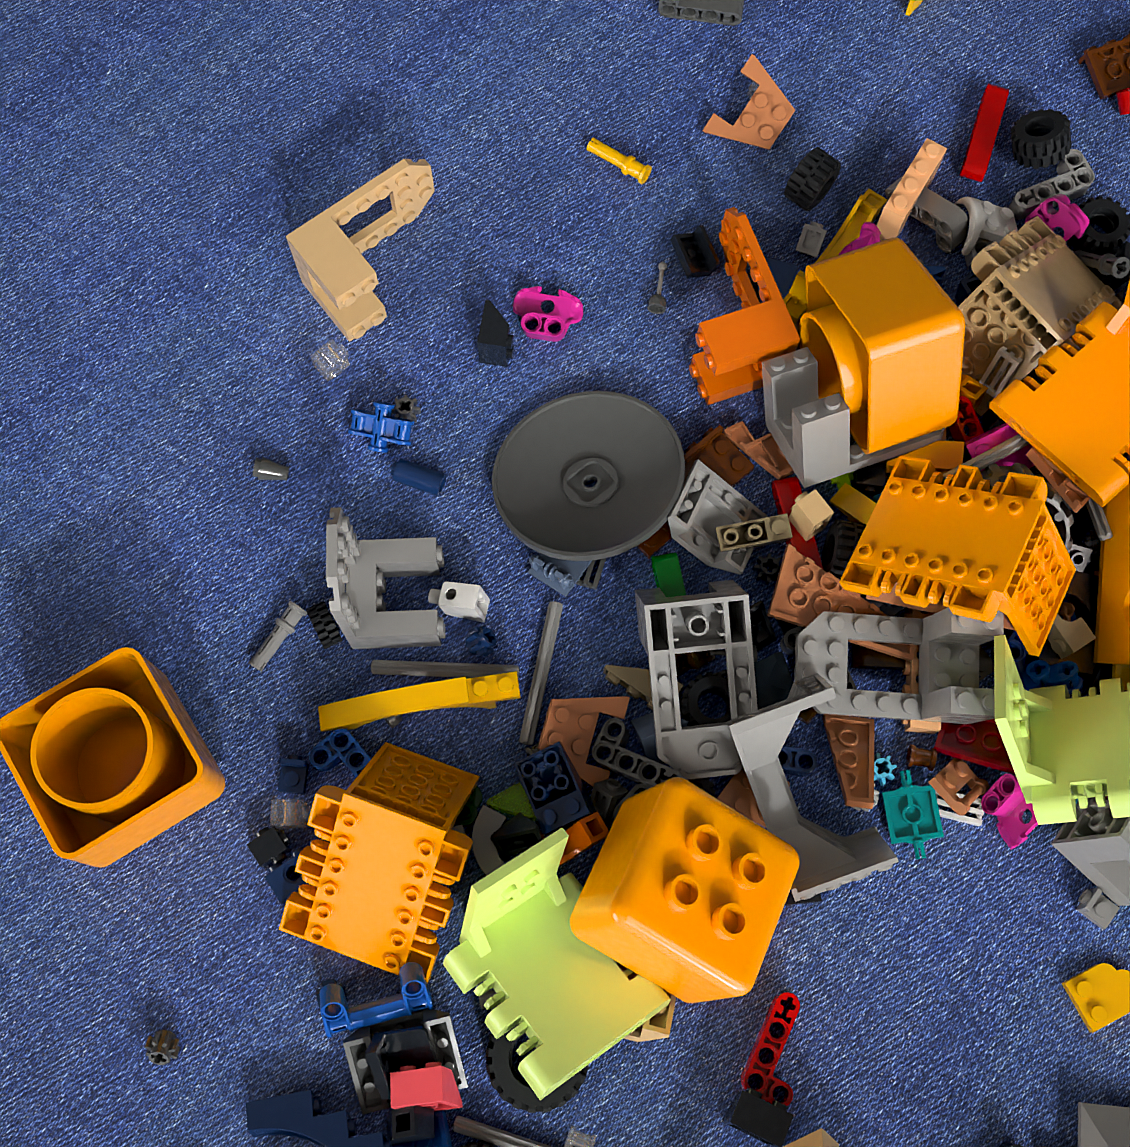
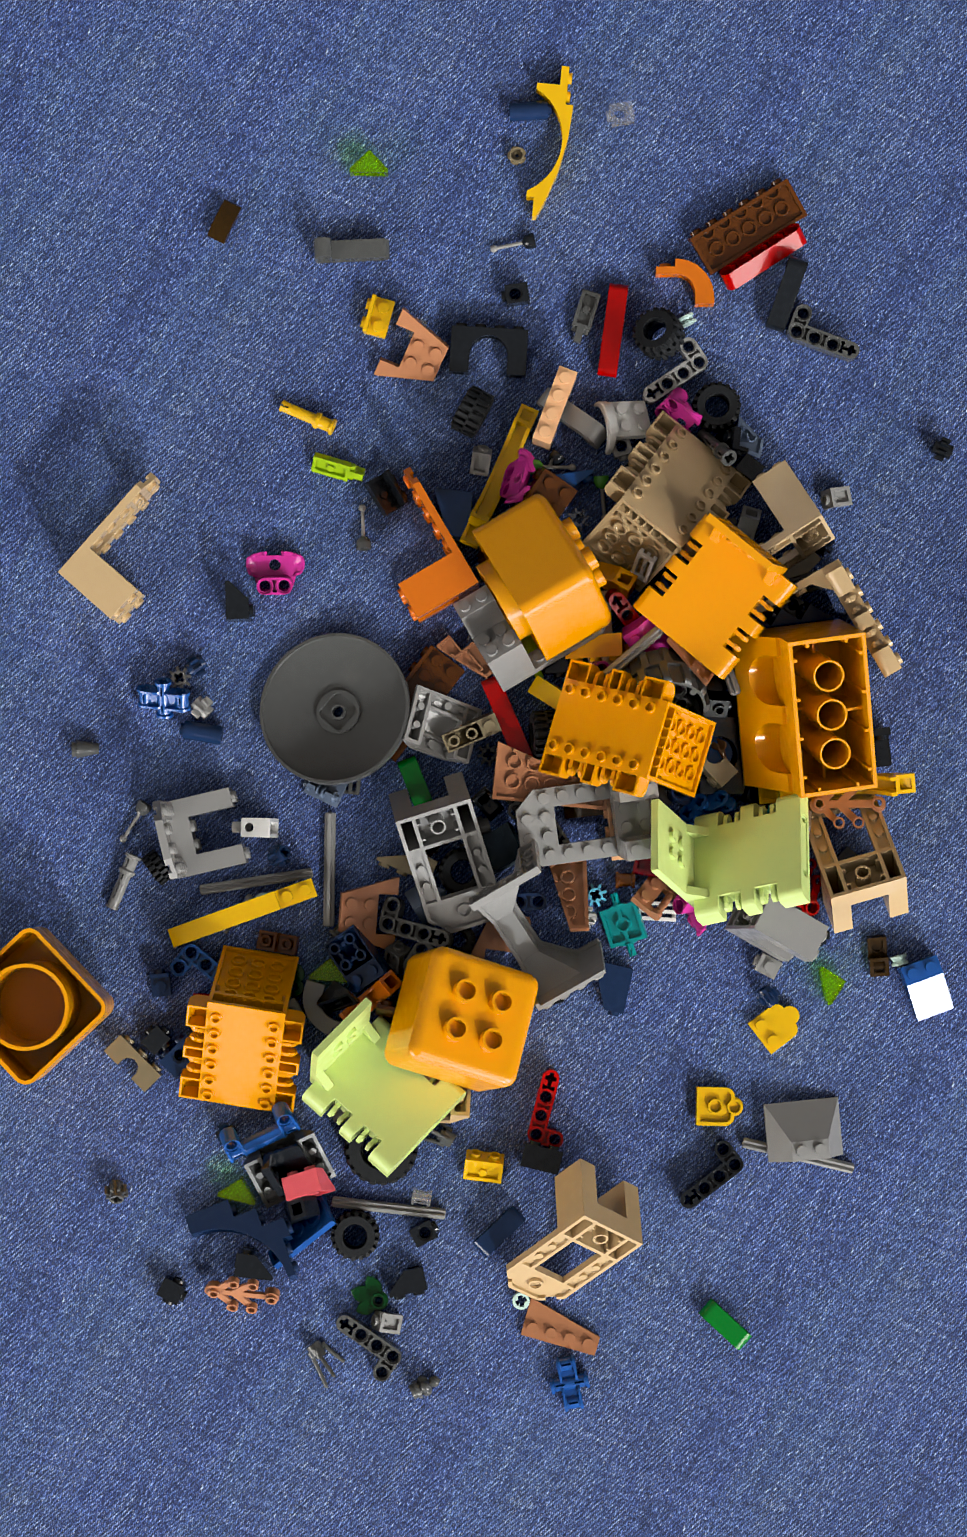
camera: 10 degrees left, 15 degrees up
(245, 889) = (123, 1048): none -> dark tan arch
(289, 813) = (165, 1012): clear brick -> none
(320, 555) = (142, 809): none -> hinge
(329, 1082) = (238, 1191): none -> clear neon green slope
(330, 359) = (109, 646): clear brick -> none
(425, 447) = (202, 707): none -> light grey gear
(429, 398) = (196, 665): none -> dark blue gear
(456, 752) = (278, 942): none -> reddish brown slope
(580, 864) = (385, 1009): none -> reddish brown slope
(627, 1060) = (444, 1137): none -> dark grey plant
(640, 216) = (336, 468): none -> lime hinge
(674, 1114) = (483, 1166): none -> yellow bracket
(717, 75) = (378, 316): none -> yellow bracket
(810, 514) = (511, 712): tan brick -> none
(866, 121) = (464, 338): none -> black arch
(878, 78) = (522, 288): none -> black brick
(890, 898) = (615, 988): none -> dark blue slope
(899, 31) = (528, 242): none -> hinge
(950, 285) = (600, 482): none -> hinge
(954, 112) = (585, 314): none -> dark grey hinge
(1009, 1092) = (716, 1106): none -> yellow plate
(1076, 136) = (687, 320): none -> light aqua bush
(1083, 93) = (692, 274): none -> orange arch
(1098, 949) = (768, 996): none -> dark blue gear

